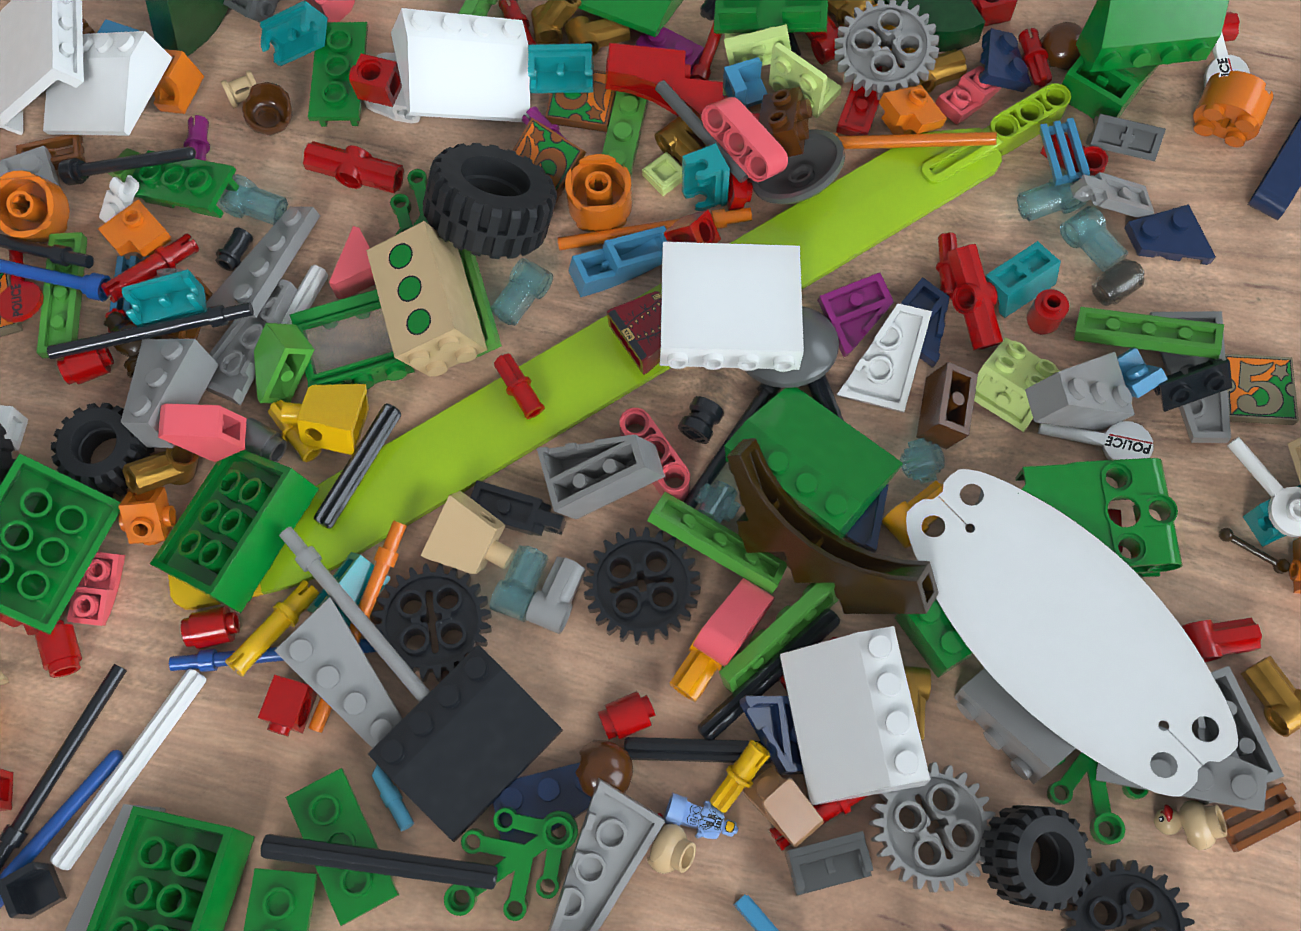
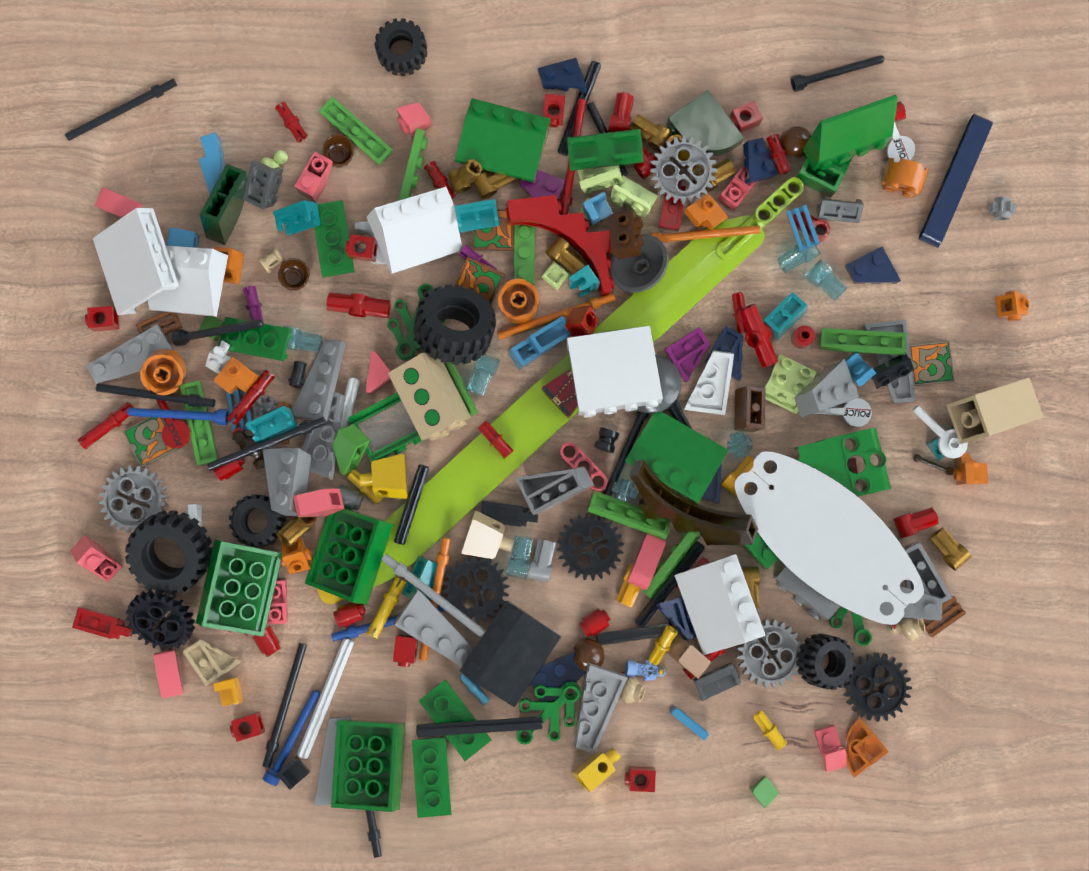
camera: 15 degrees left, 15 degrees up
(696, 125) = (576, 252): dark grey bar -> none
(744, 139) = (604, 256): coral beam -> none
(1114, 194) = (836, 251): light grey hinge -> none
(1118, 282) = (843, 308): clear smoke brick -> none

